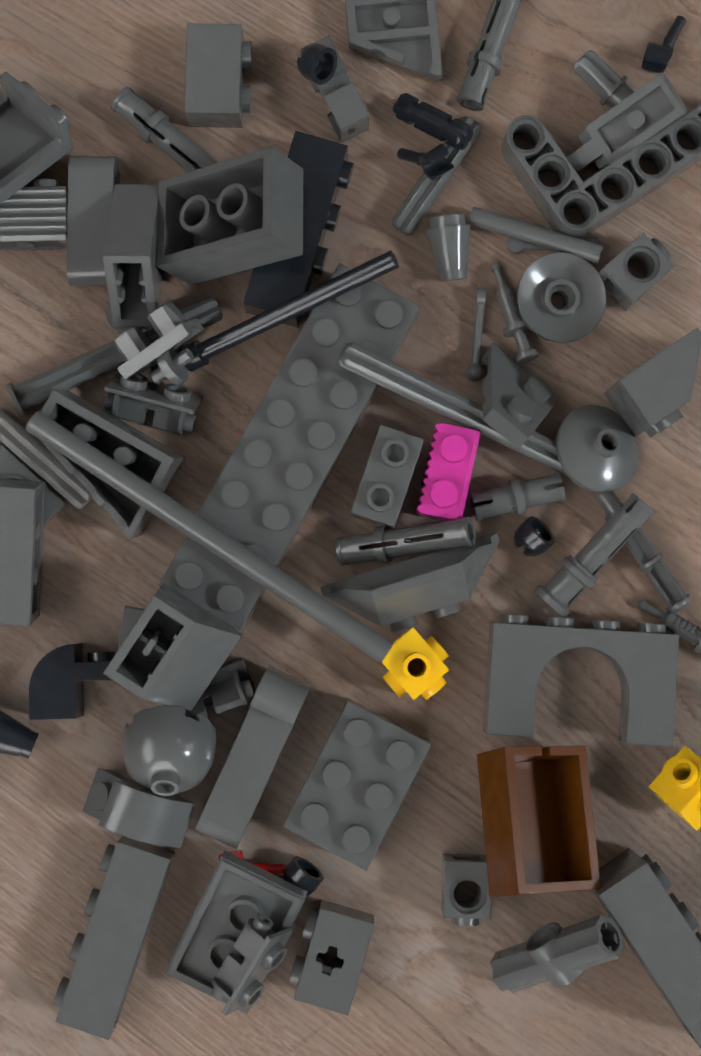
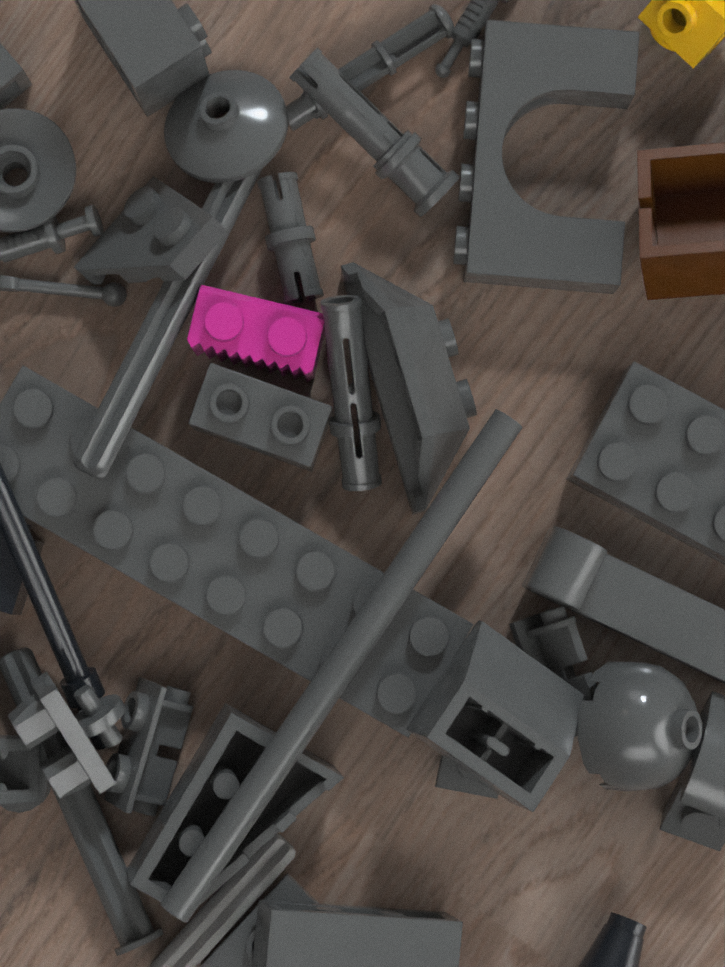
camera: 90 degrees left, 0 degrees up
(58, 682) = (538, 883): black brick -> none
(411, 646) = (541, 363): yellow brick -> none
(533, 536) = (346, 216): black hinge -> none

